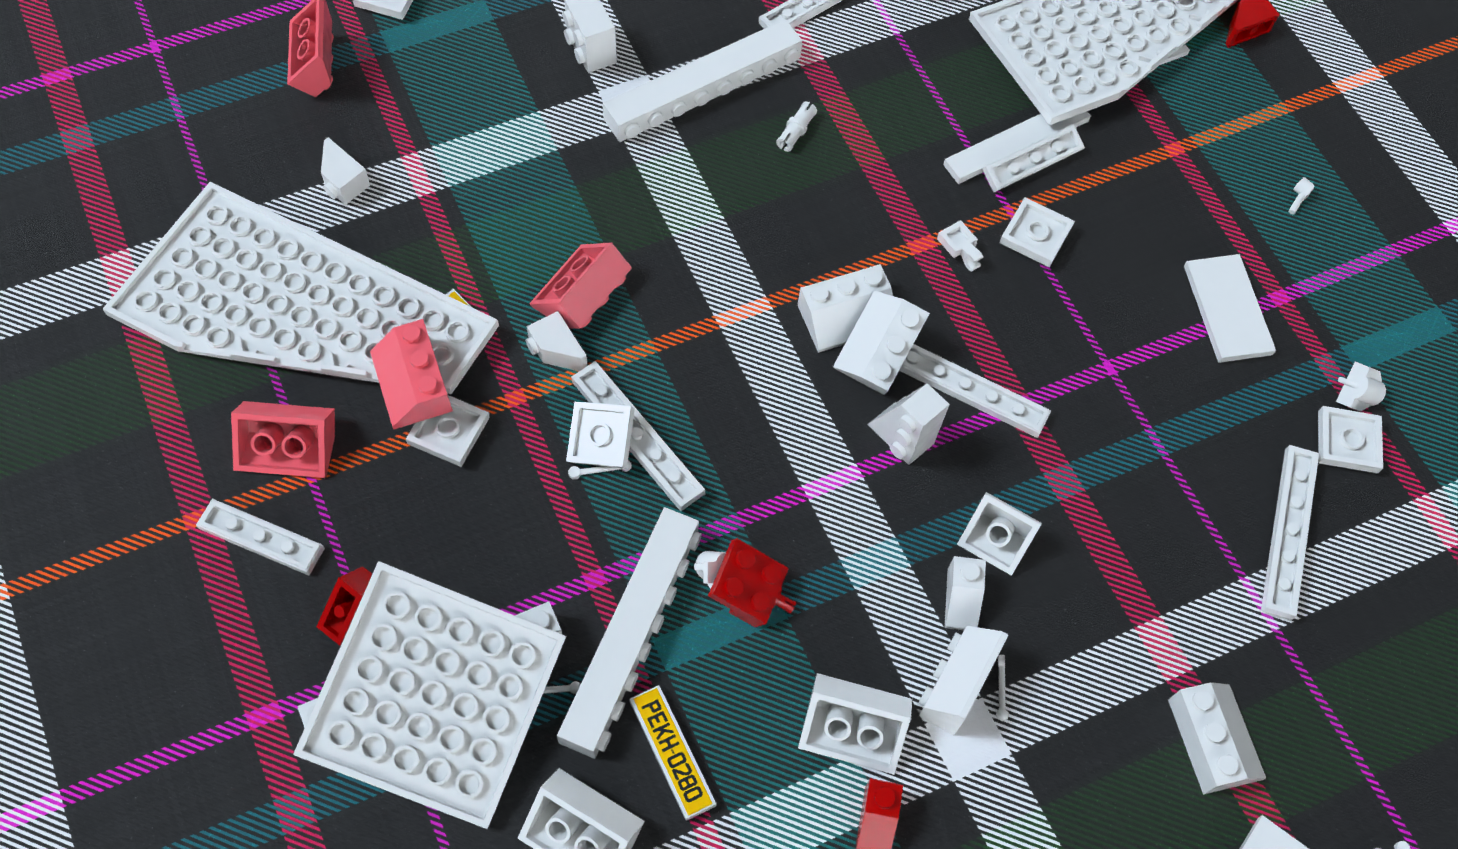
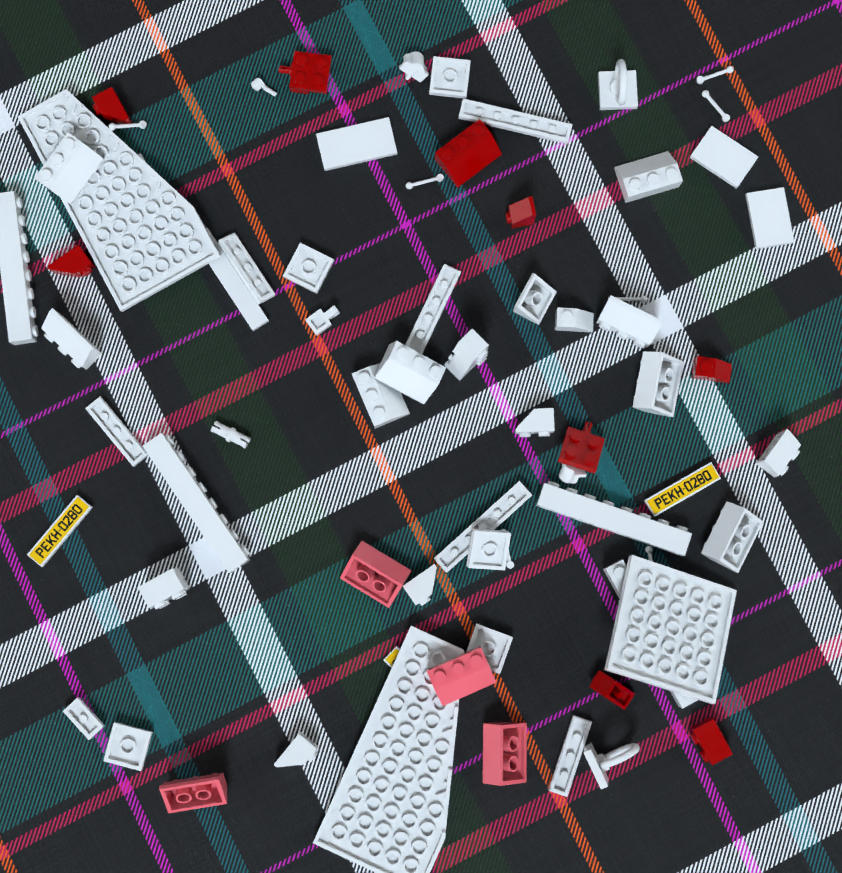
camera: 85 degrees left, 20 degrees up
(230, 568) = (601, 763): none -> white tile
(234, 759) = (710, 741): none -> red brick
(798, 524) = (538, 421): none -> white slope
(1139, 524) = (521, 213): none -> red slope
(1187, 417) = (439, 178): none -> white hinge
(1229, 54) = (142, 124): none -> white hinge
(1230, 454) = (468, 153): none -> red slope
(1331, 248) = (308, 72): none -> red plate
(1369, 699) = (618, 88): none -> white tile

